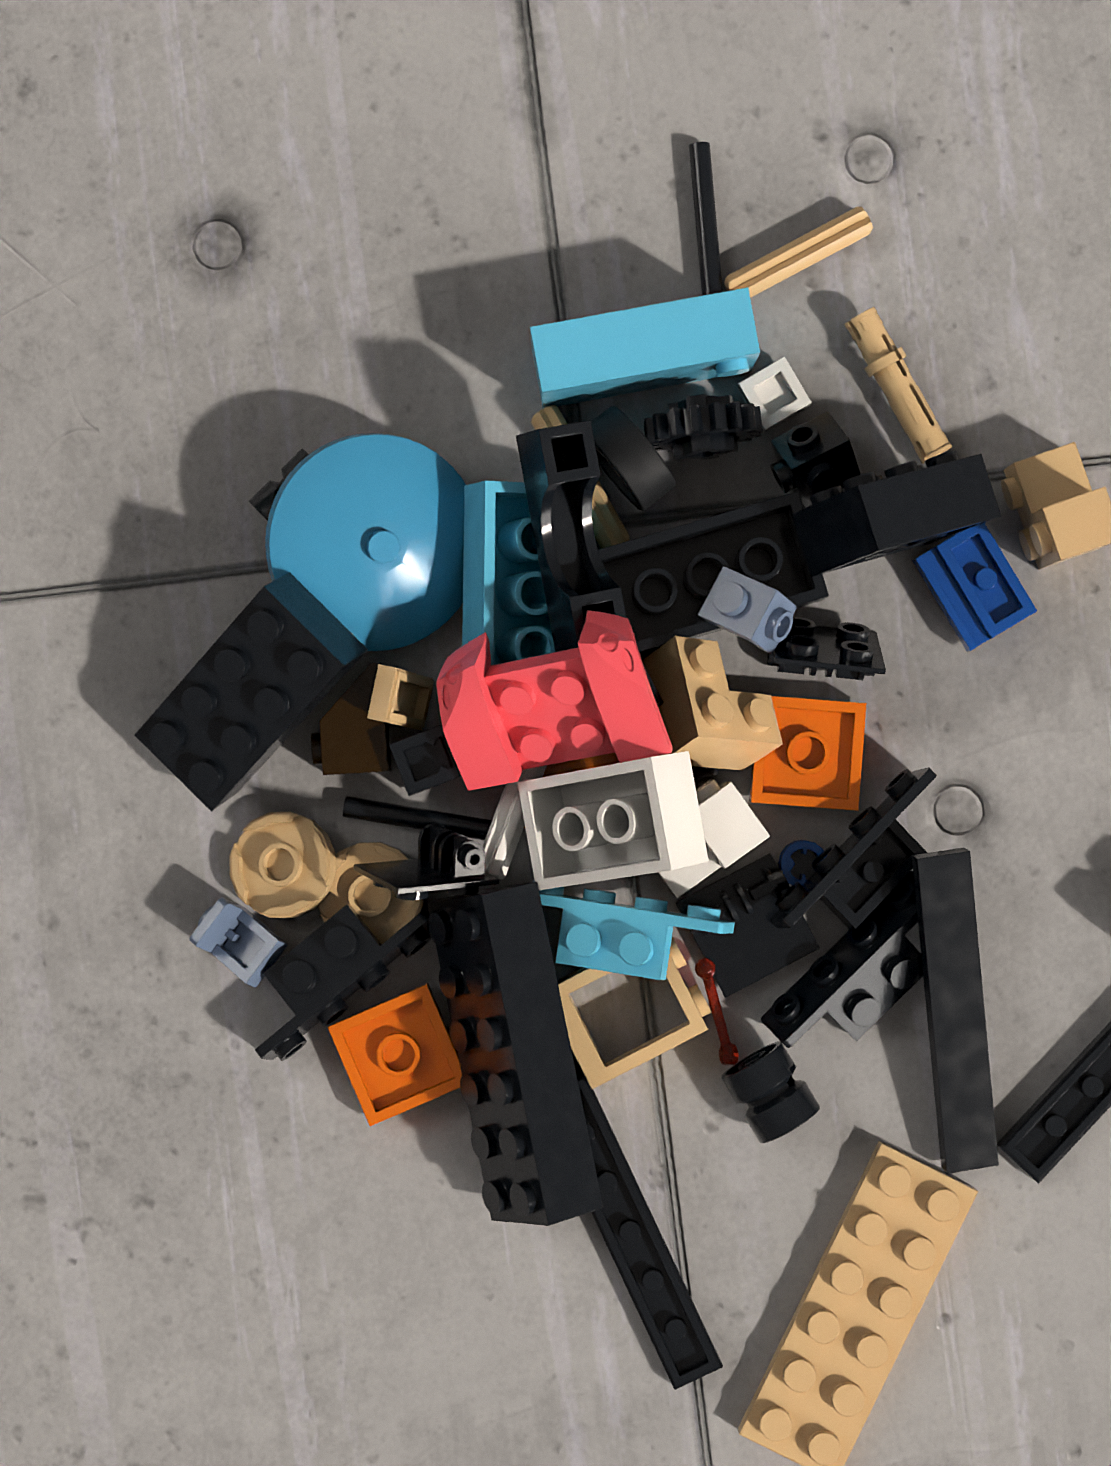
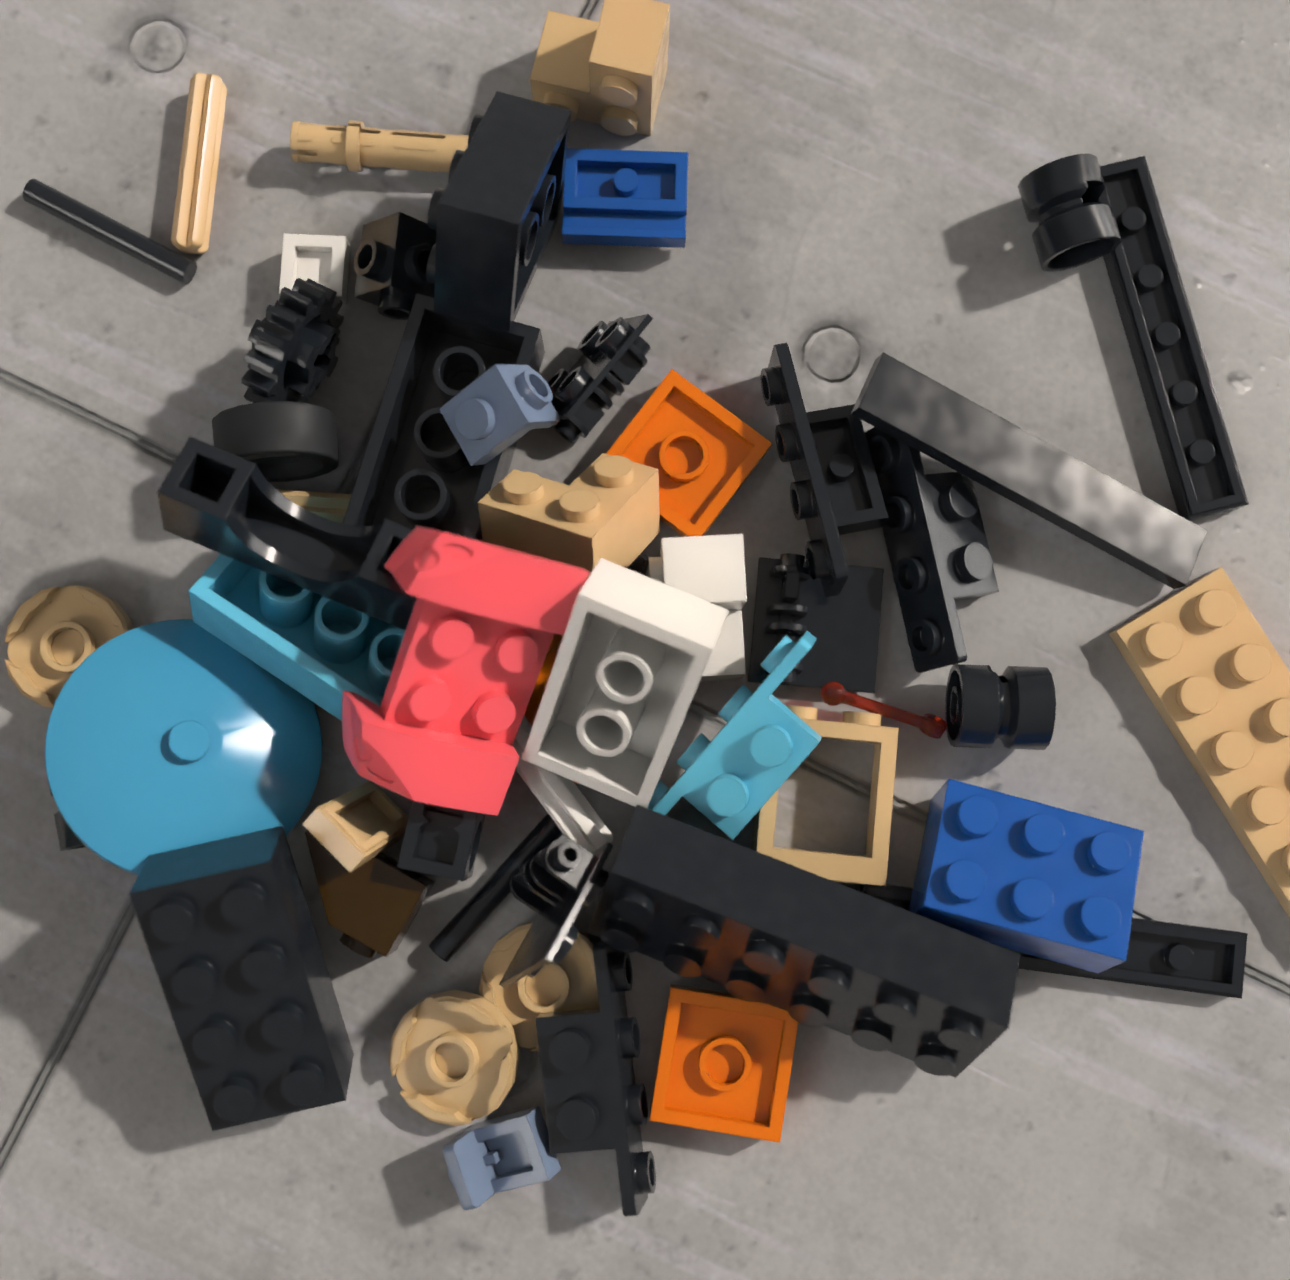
camera: 60 degrees left, 5 degrees down
(389, 396) = (56, 634): none -> tan tile
(645, 348) = (175, 349): medium azure brick -> none
(662, 1183) = (1028, 876): none -> blue brick
(786, 862) = (779, 546): blue bush -> none

